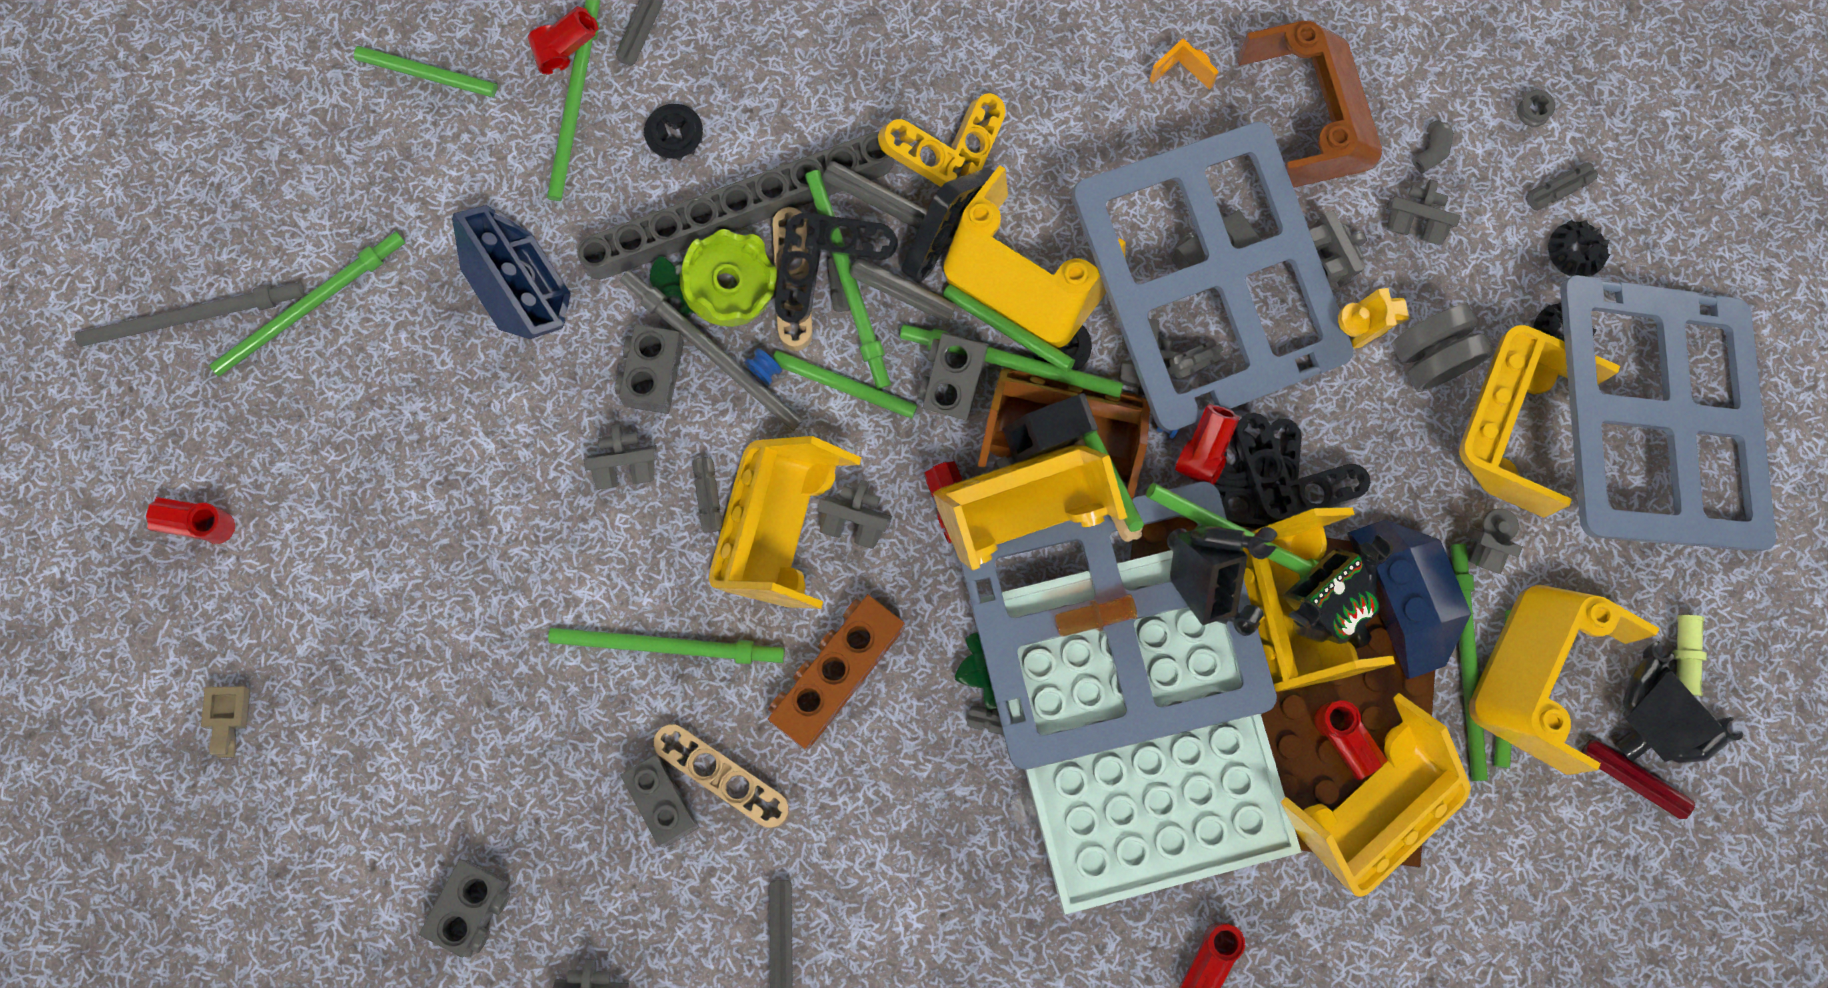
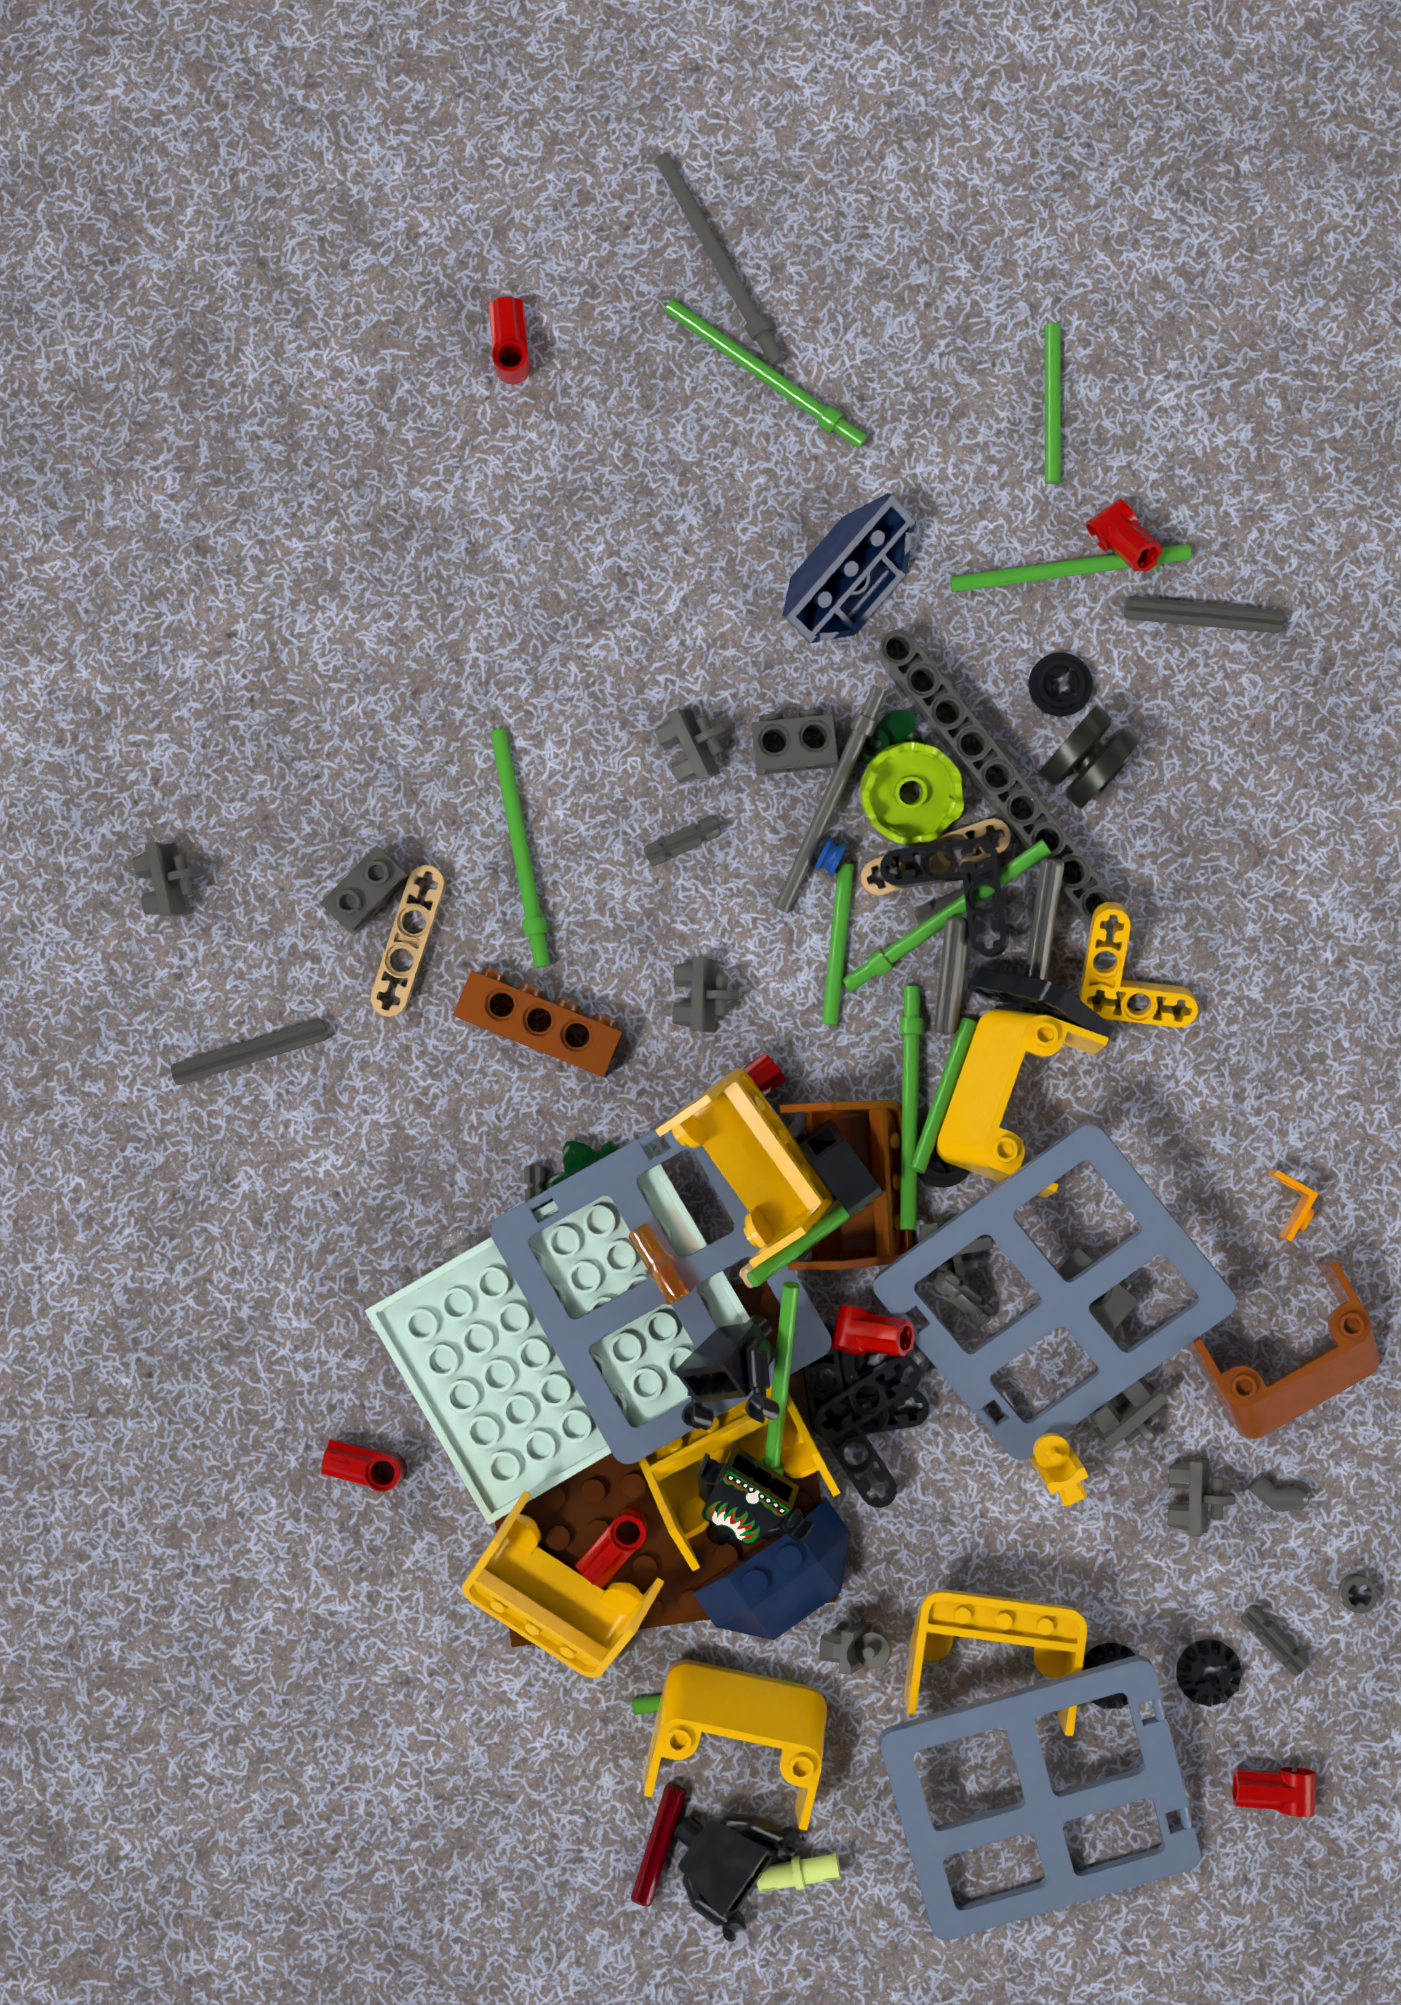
camera: 75 degrees right, 10 degrees up
(224, 712) = (334, 442): dark tan plate -> none
(457, 902) = (217, 729): dark grey brick -> none
(745, 118) = (1089, 758): none -> pearl dark grey wheel
(768, 516) = (669, 909): yellow windscreen -> none
(963, 378) = (873, 1062): dark grey brick -> none
(1442, 347) = (1047, 1549): dark grey wheel -> none
(1469, 665) = (807, 1628): bright green bar -> none
(1697, 214) = (1278, 1790): none -> red piece

